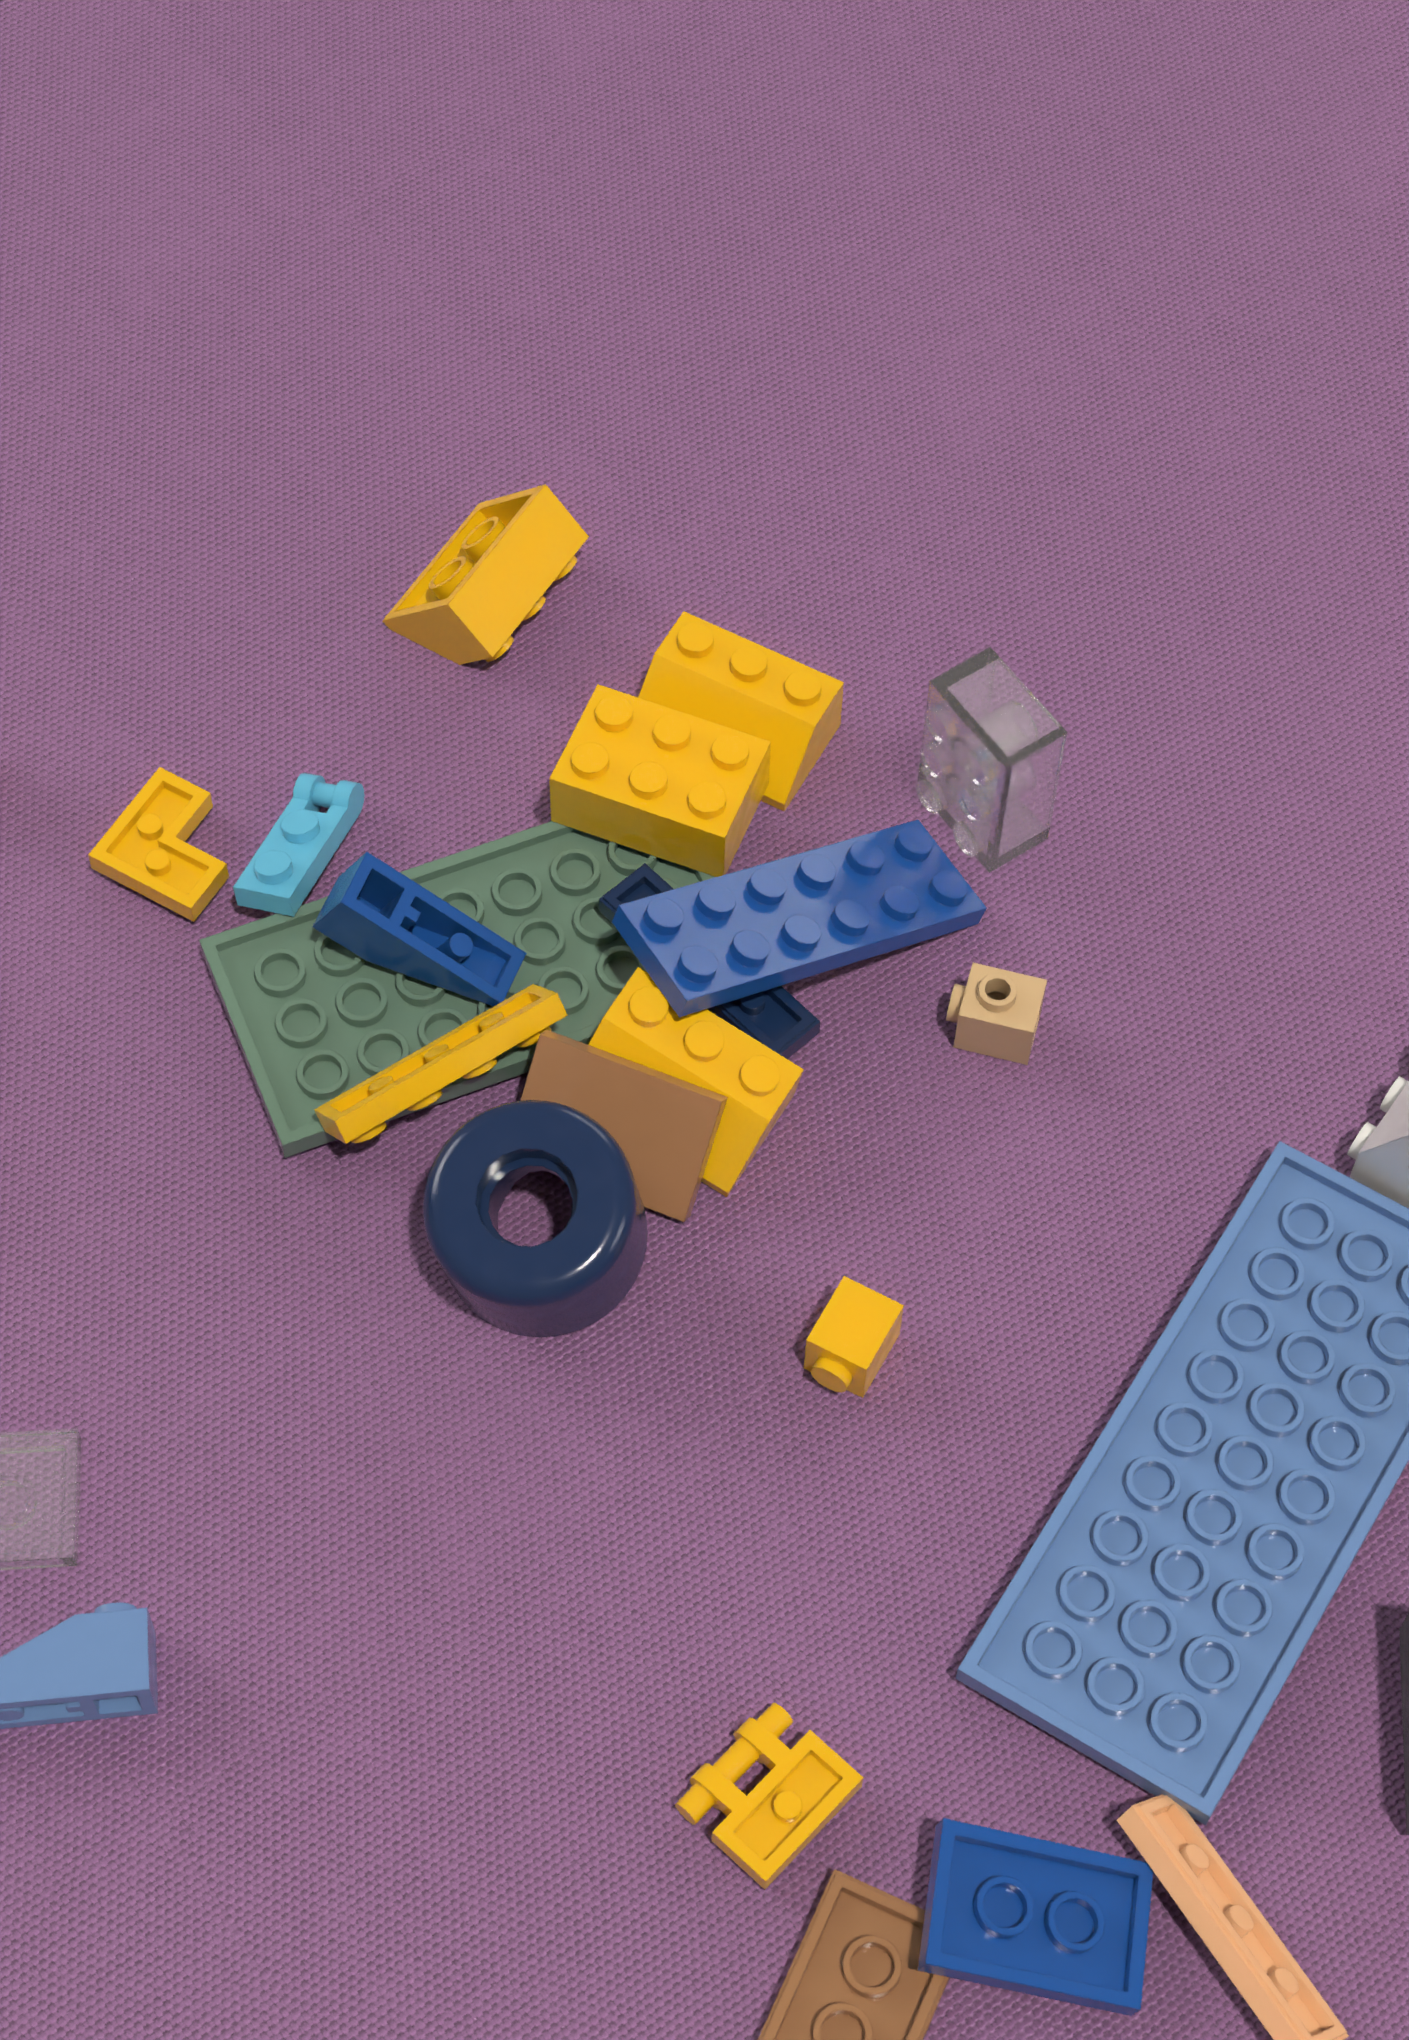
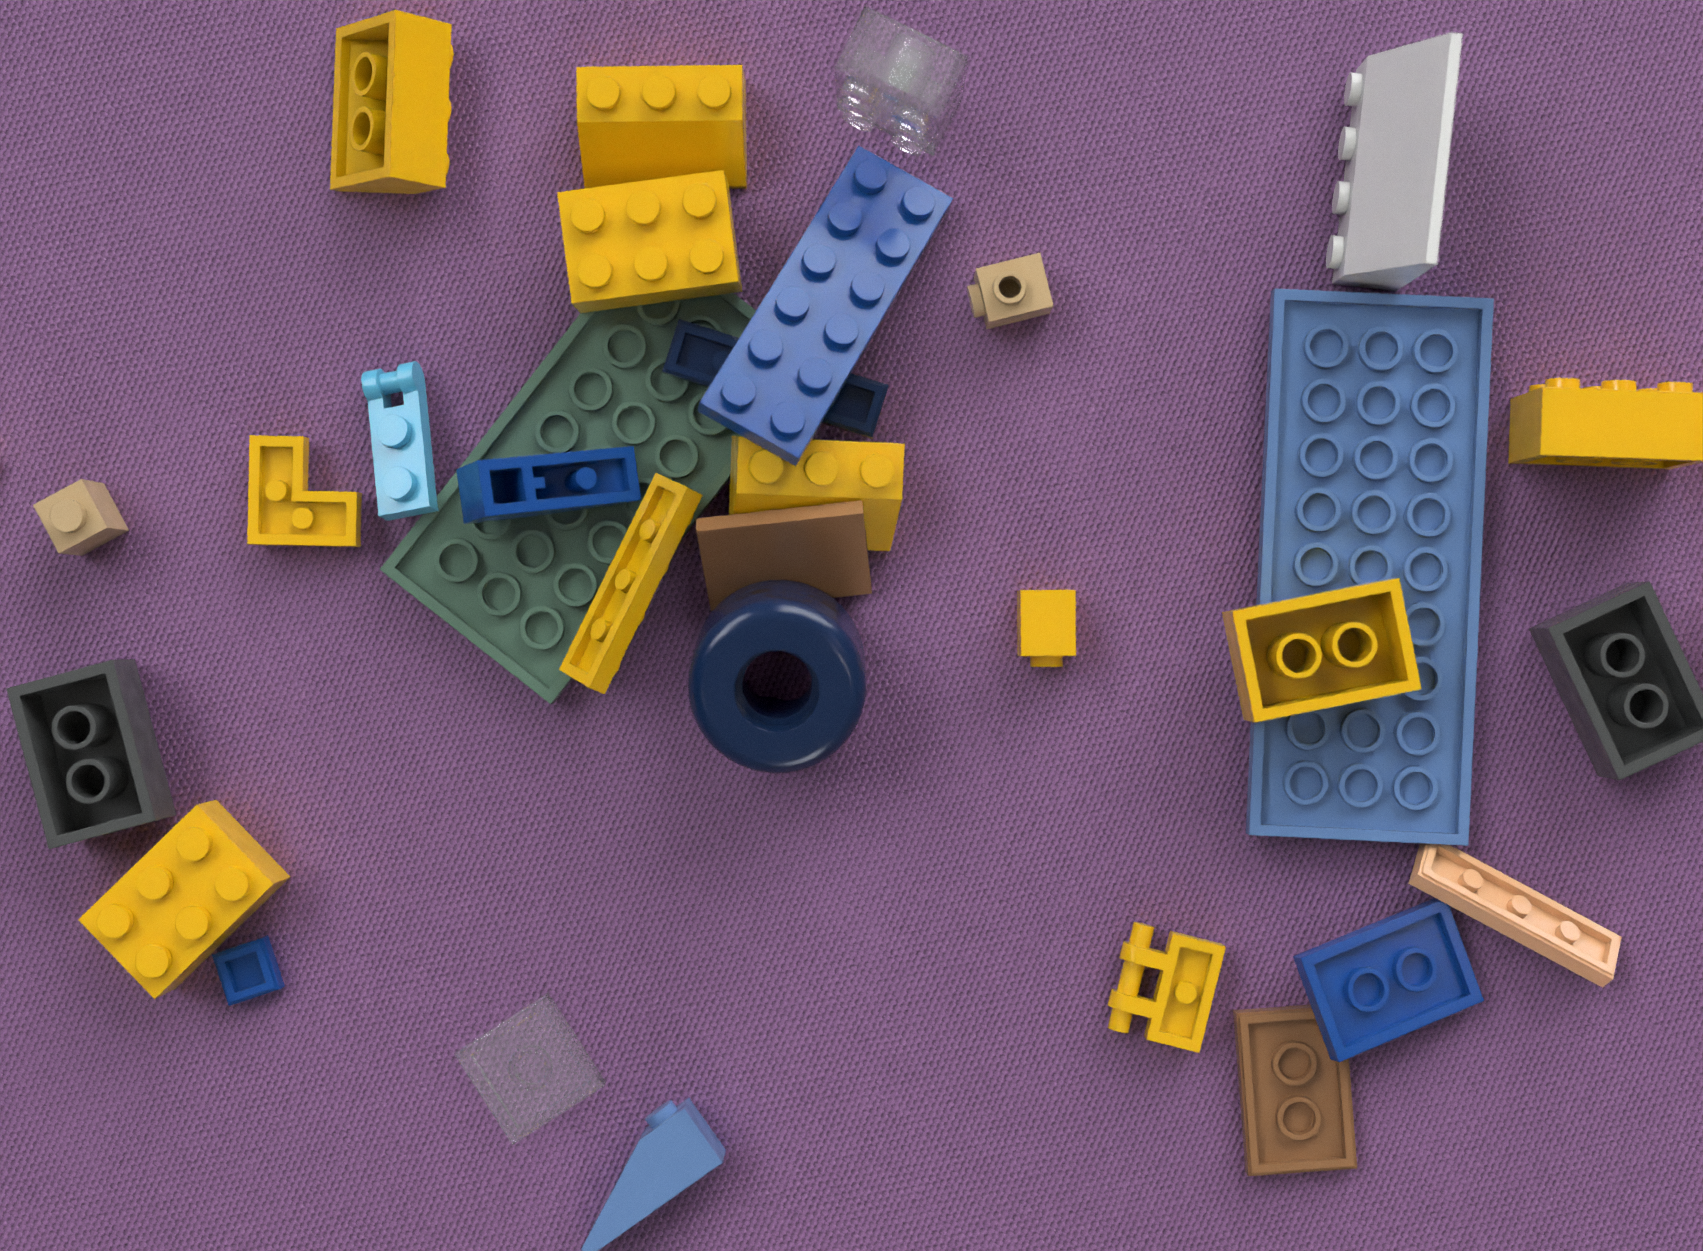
camera: 30 degrees left, 30 degrees up
(1142, 1488) = (1321, 650): none -> yellow brick

